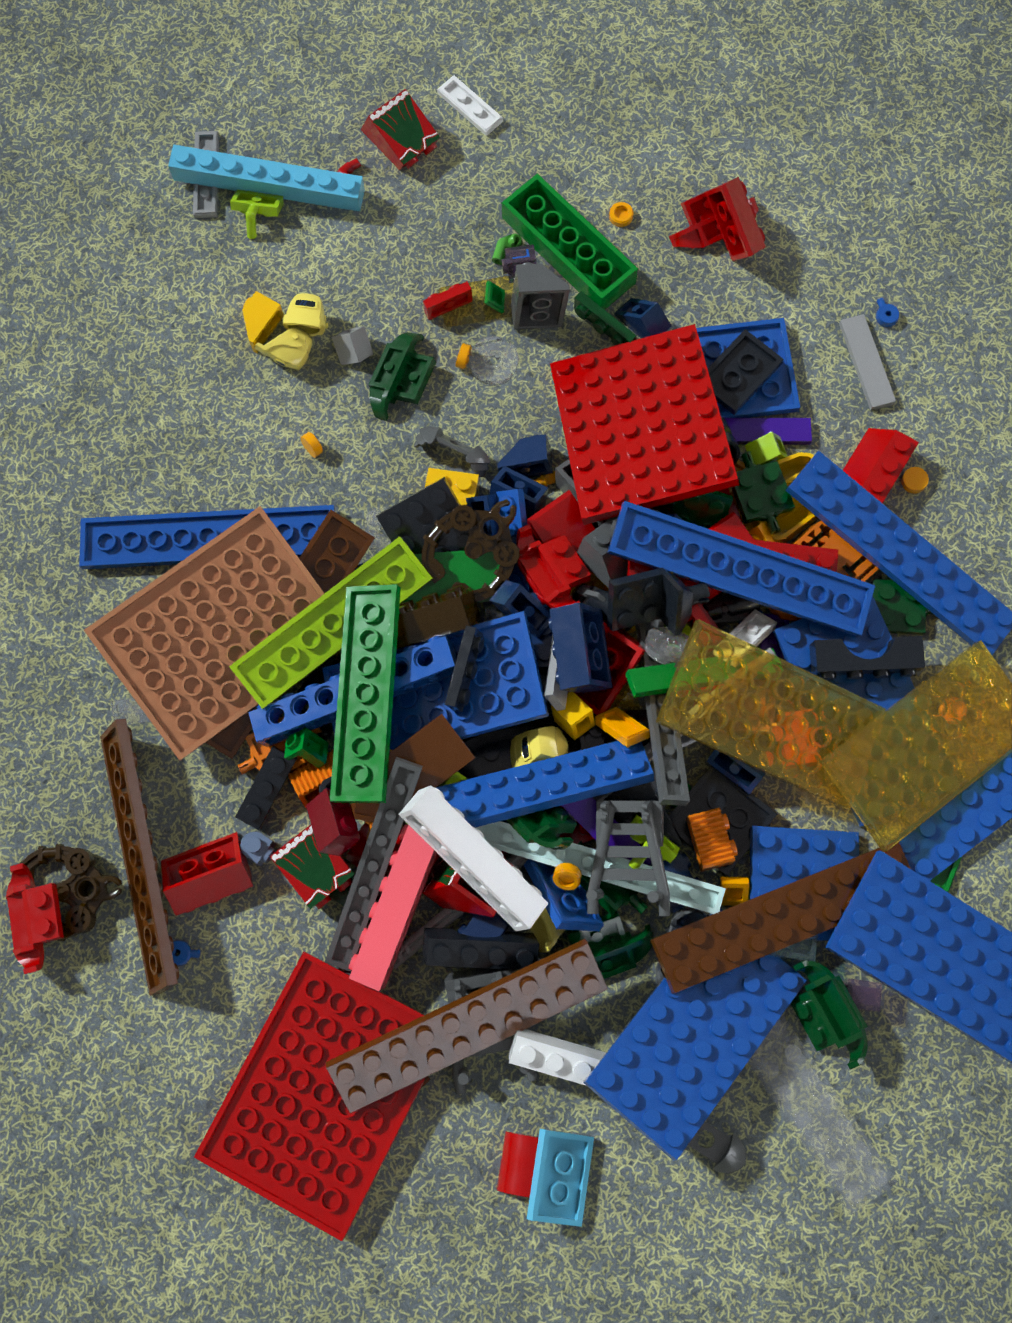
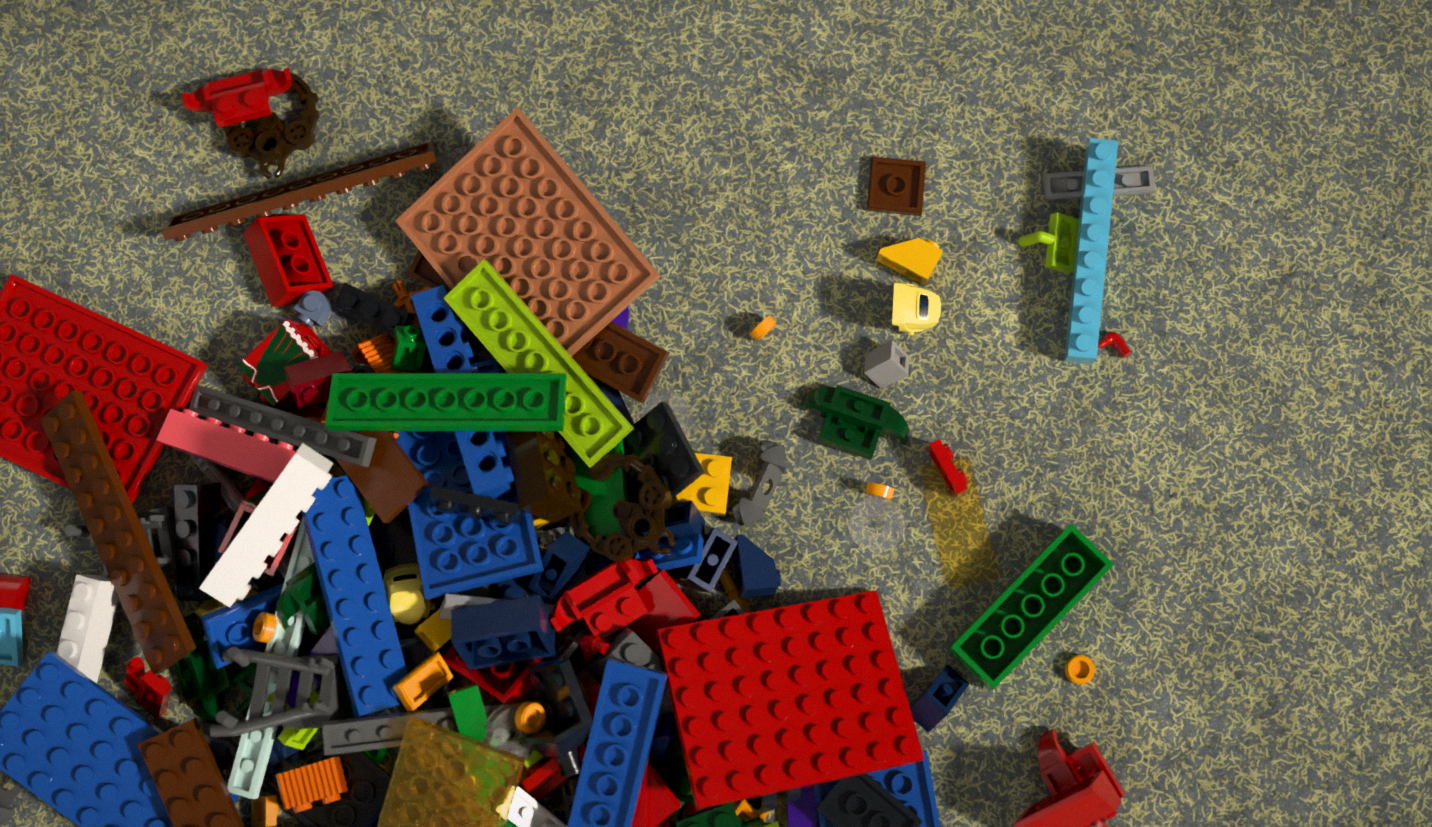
camera: 85 degrees right, 5 degrees up
(175, 536) = (653, 219): blue plate -> none
(186, 952) = (211, 247): blue piece -> none
(191, 332) = (896, 186): none -> reddish brown tile
(289, 348) = (872, 293): light yellow helmet -> none
(401, 131) = (1166, 402): slope -> none
(470, 105) = (1215, 481): white tile -> none
(494, 296) = (955, 522): green slope -> none
(509, 241) = (1026, 531): bright green arm -> none
(517, 256) = (999, 550): clear purple brick -> none
(538, 297) = (945, 569): dark grey slope -> none
(591, 576) = (592, 643): none -> red animal
(602, 320) = (930, 651): dark green plate -> none
(622, 999) = (151, 689): none -> red plate
(657, 626) = (530, 717): none -> light orange tile

